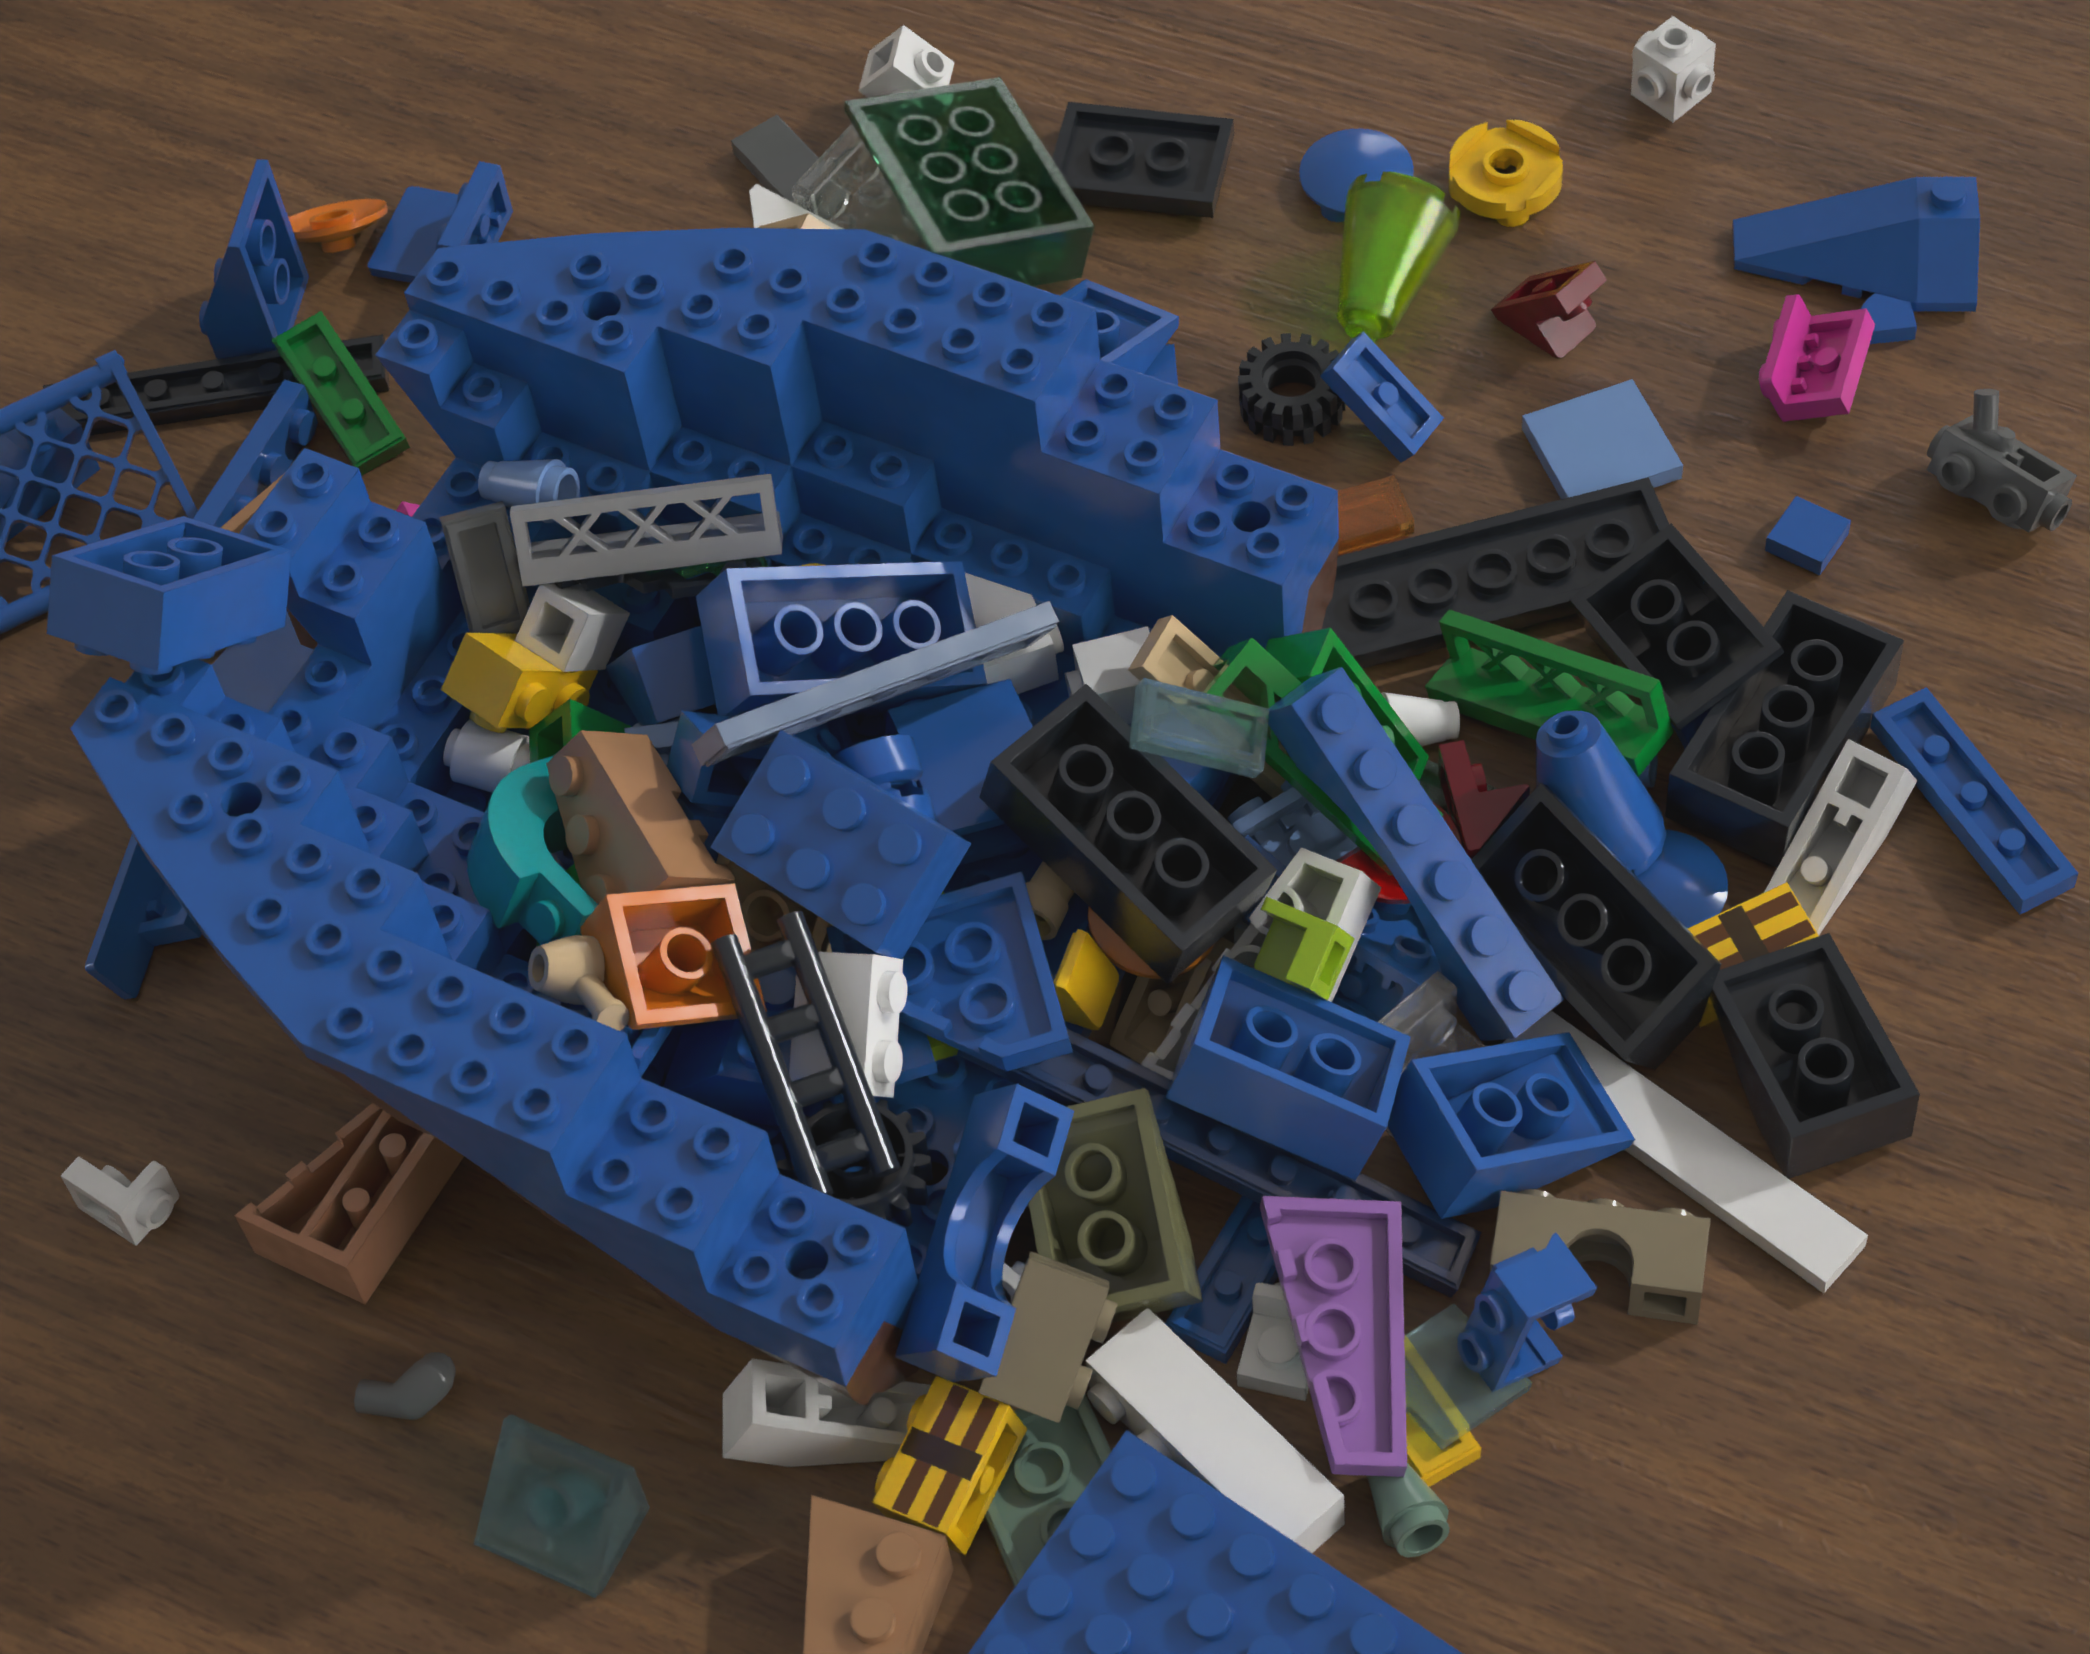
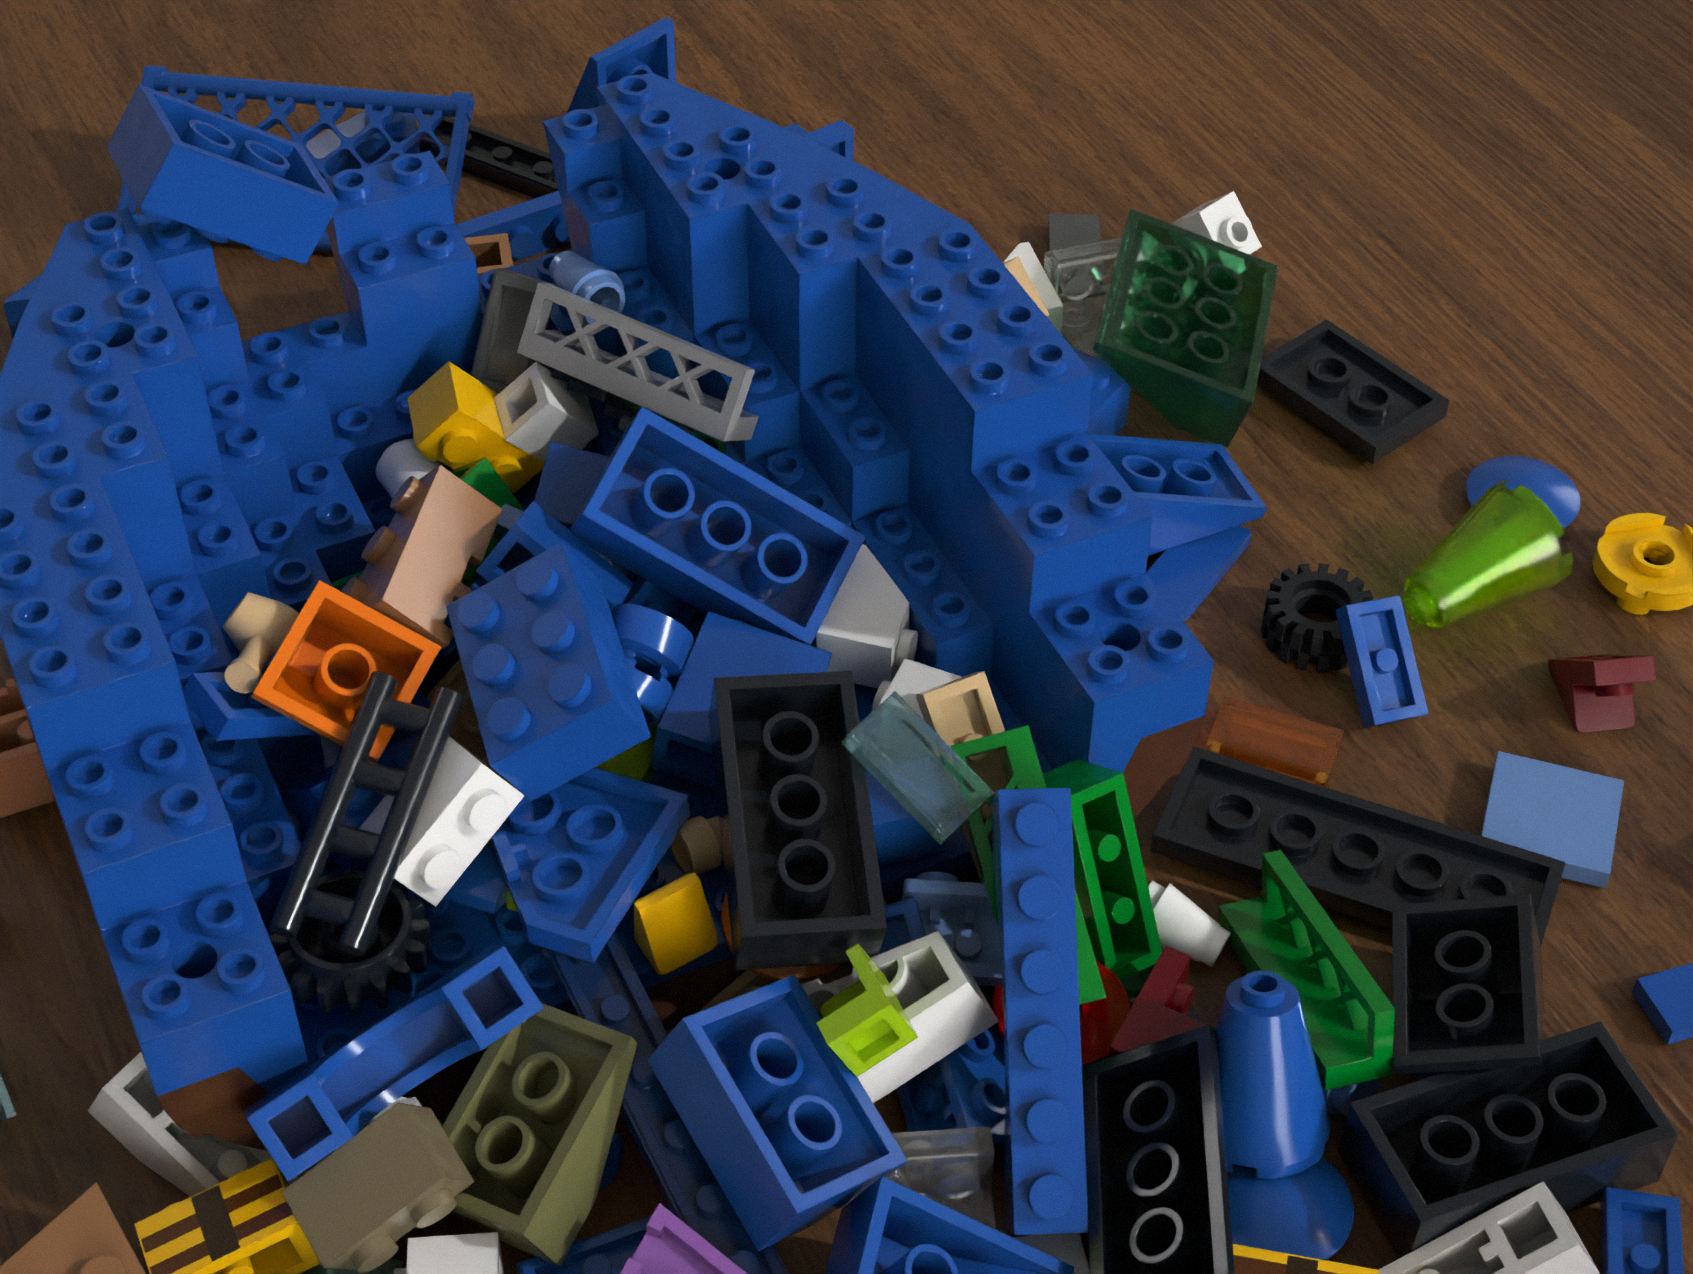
camera: 30 degrees right, 10 degrees down
(513, 860) = (328, 527): teal arch -> none
(874, 684) = (694, 570): sand blue tile -> none

